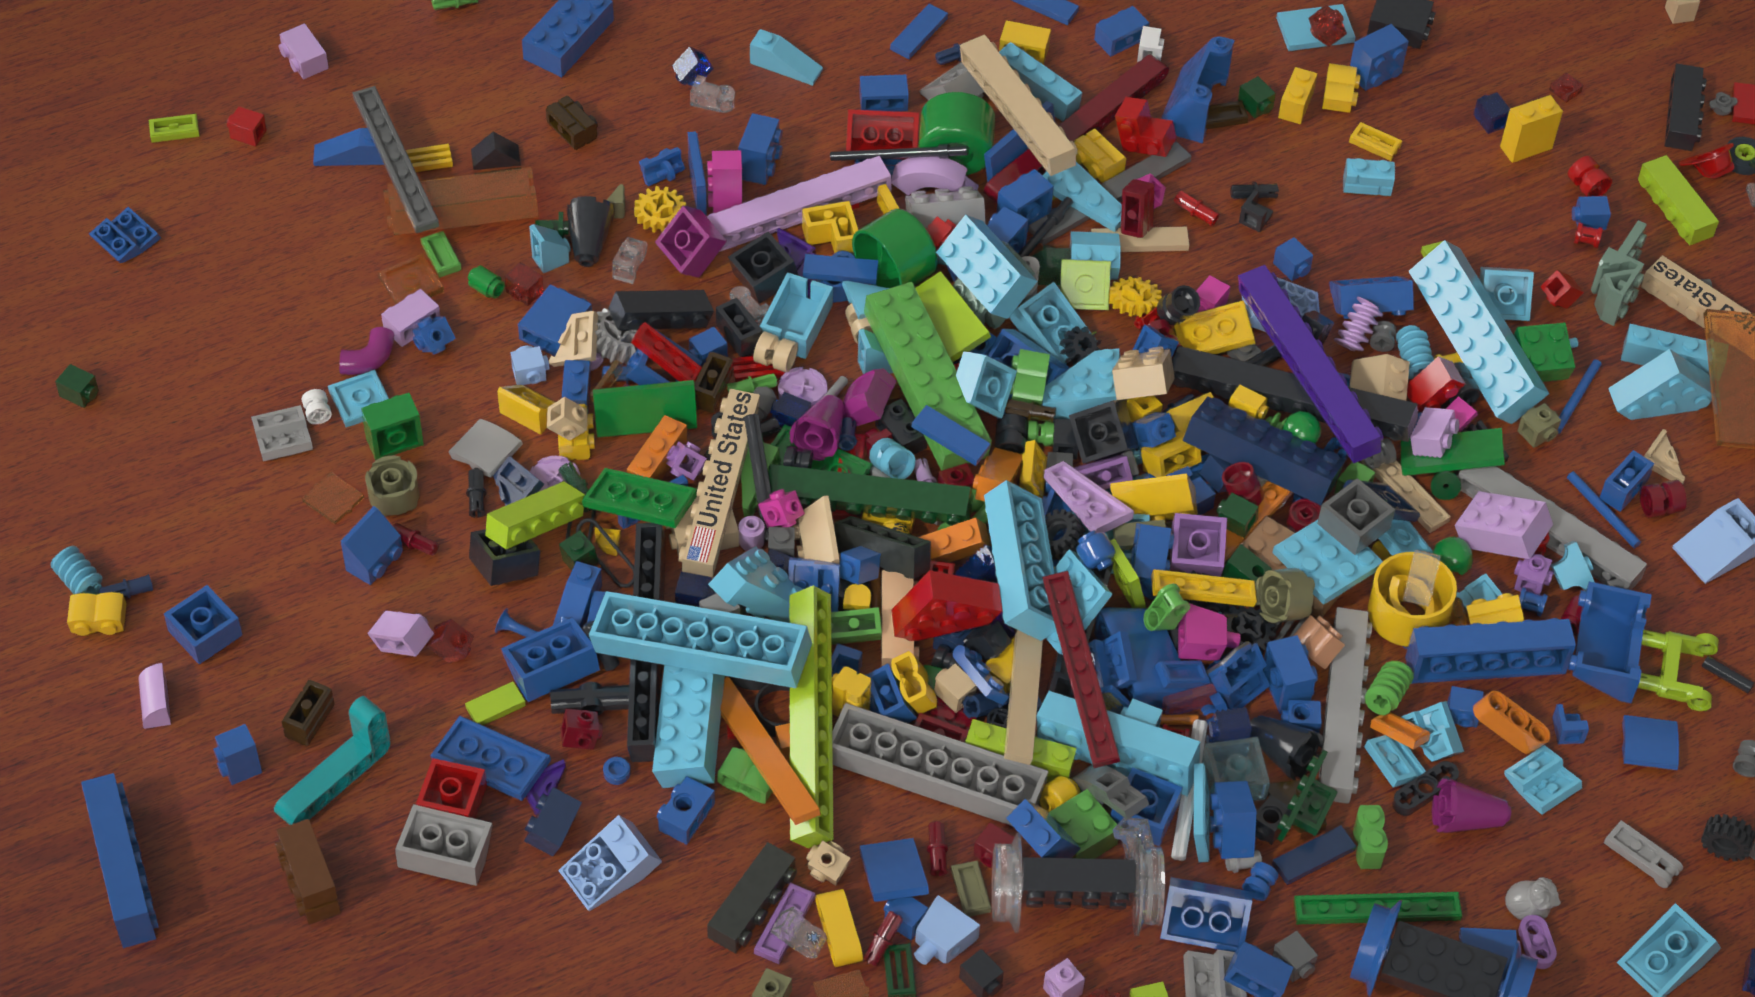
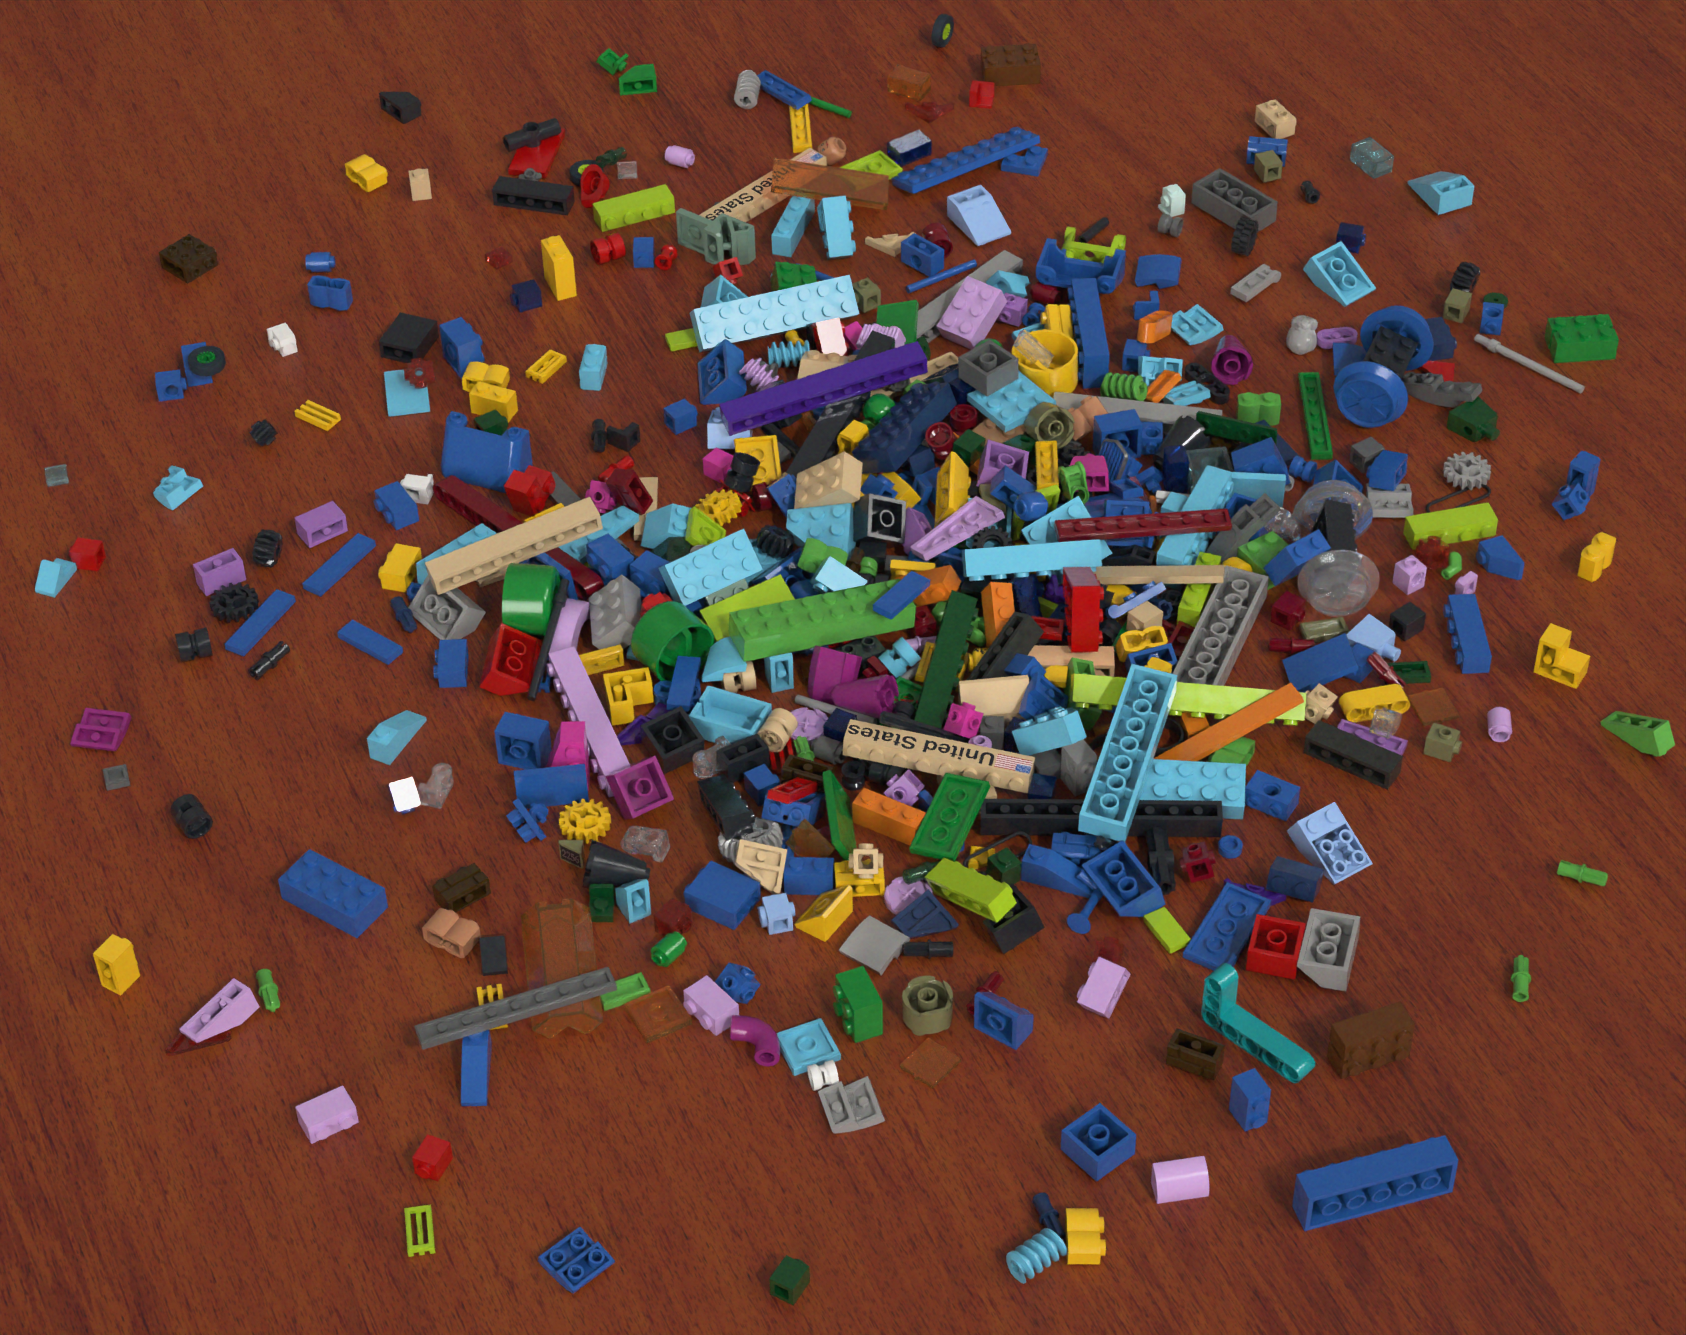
camera: 85 degrees left, 10 degrees down
(517, 118) = (451, 932): none -> nougat brick

